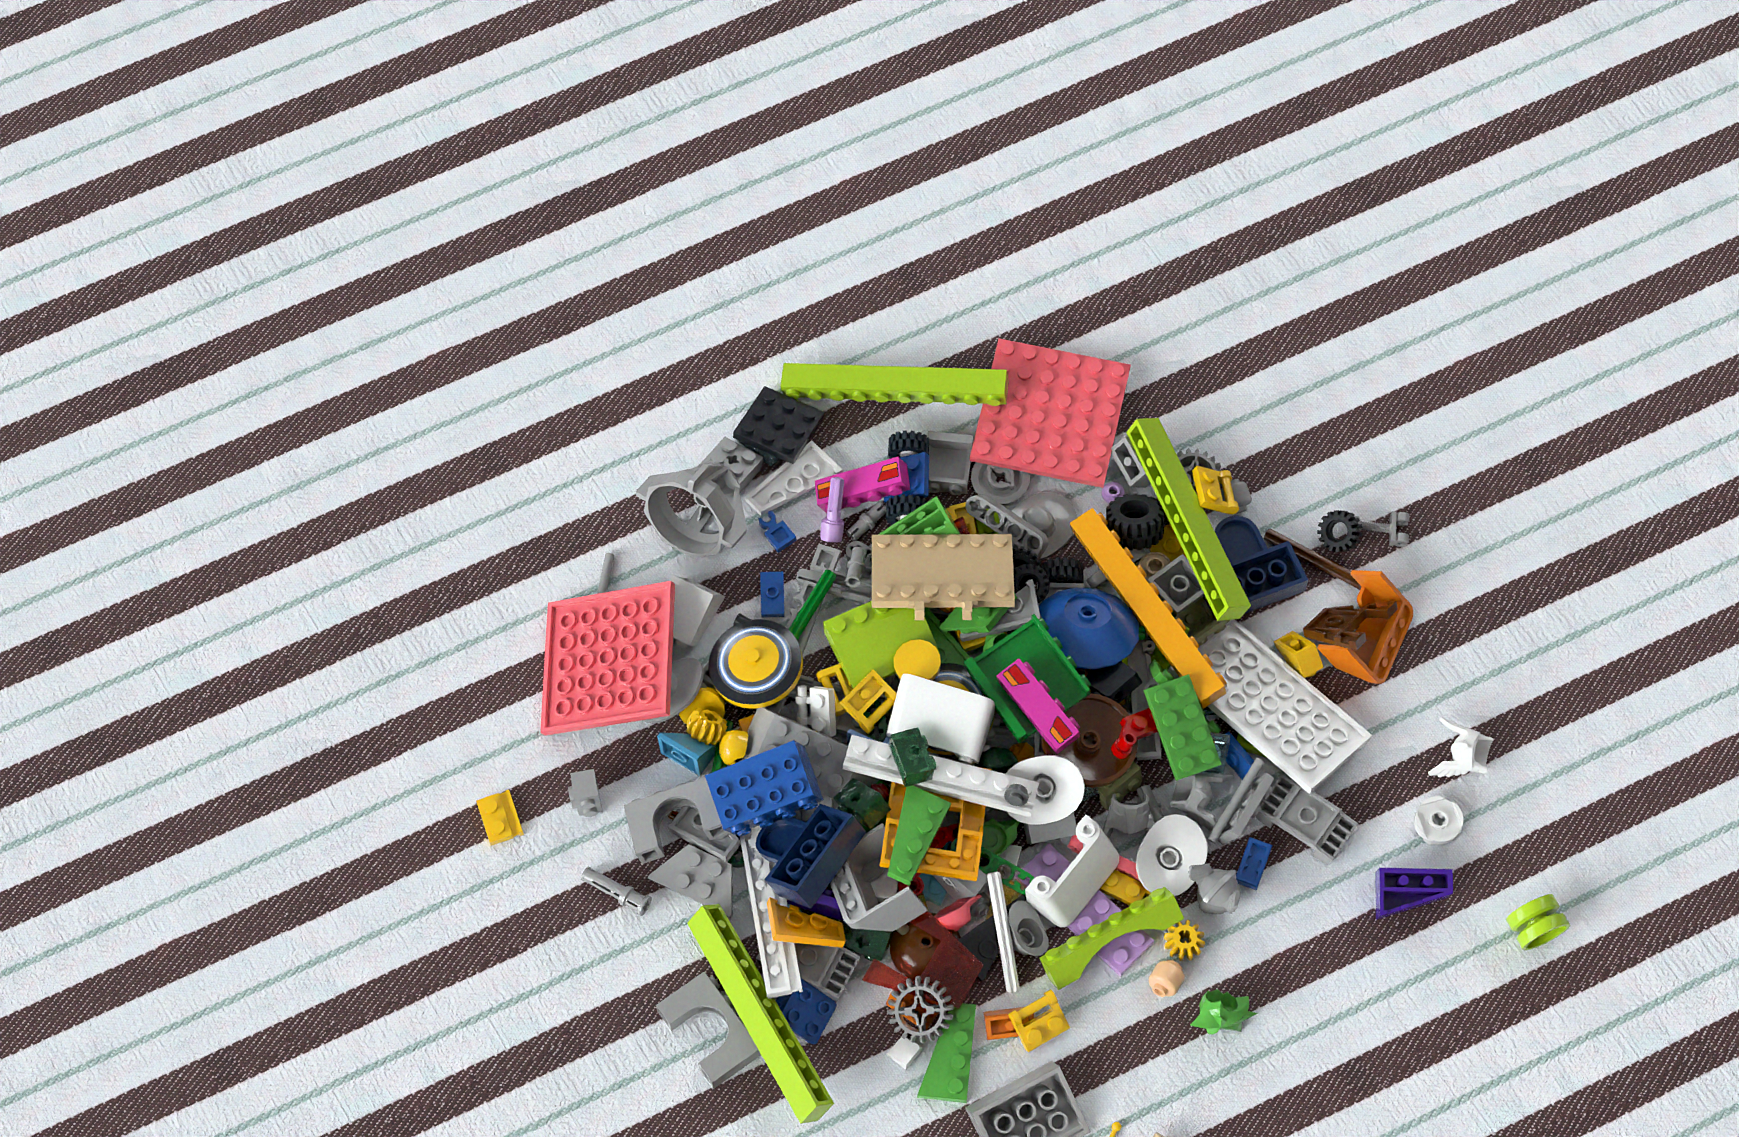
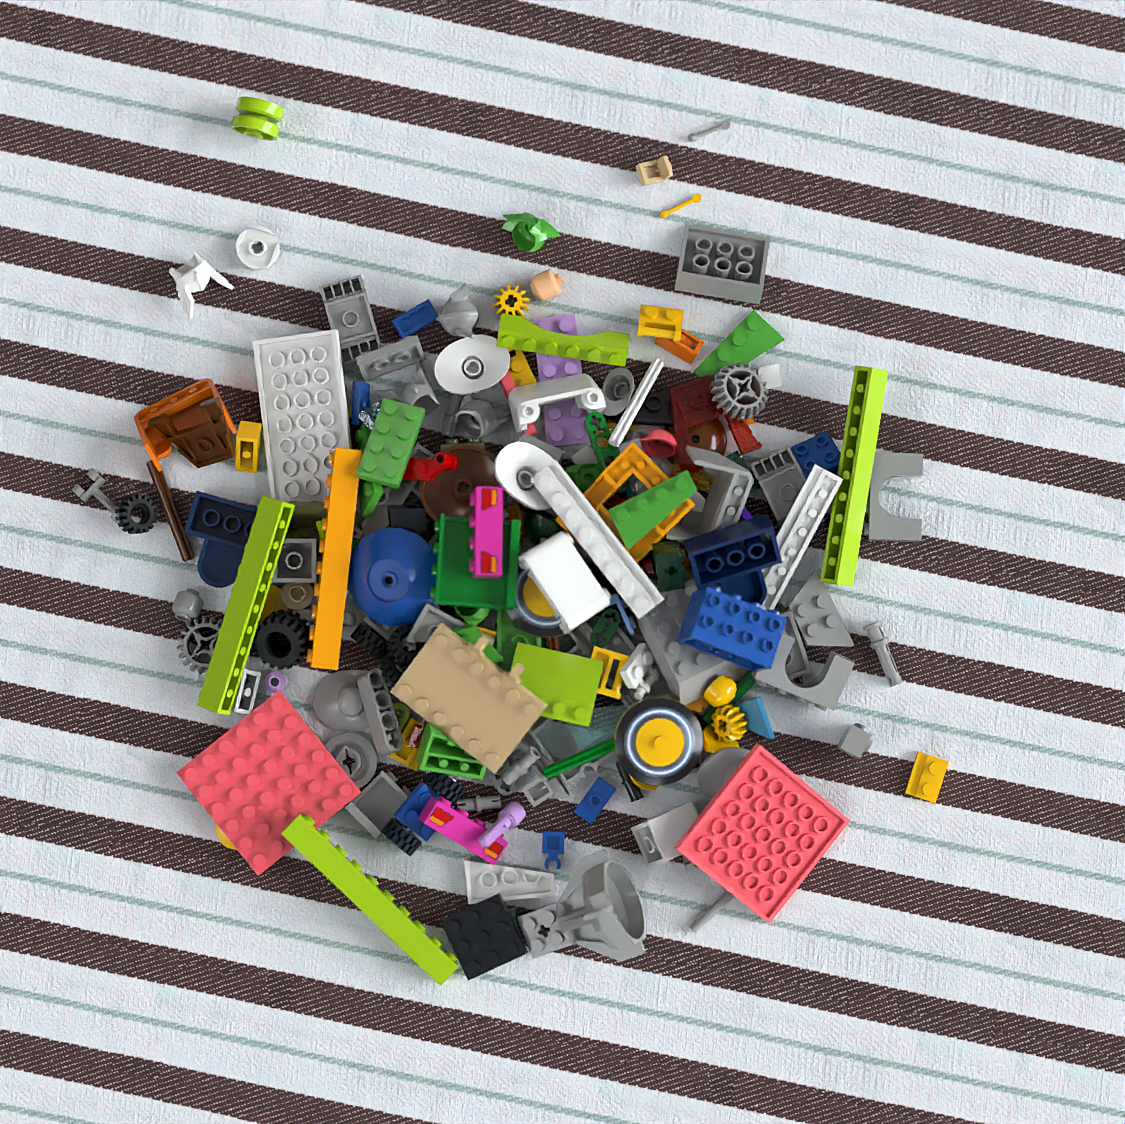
camera: 145 degrees left, 20 degrees up
(797, 927) = (783, 511): light orange wing -> none
(814, 644) = (601, 727): none -> clear light blue wing
(864, 695) = (601, 647): yellow plate -> none
(912, 757) = (621, 554): clear green brick -> none
(917, 659) = (543, 641): yellow tile -> none
(1016, 795) = (557, 477): dark grey plate -> none
(1209, 491) = (209, 616): yellow plate -> none
(1235, 800) = (391, 370): light grey bar -> none
(1410, 888) = (323, 213): dark purple wedge -> none

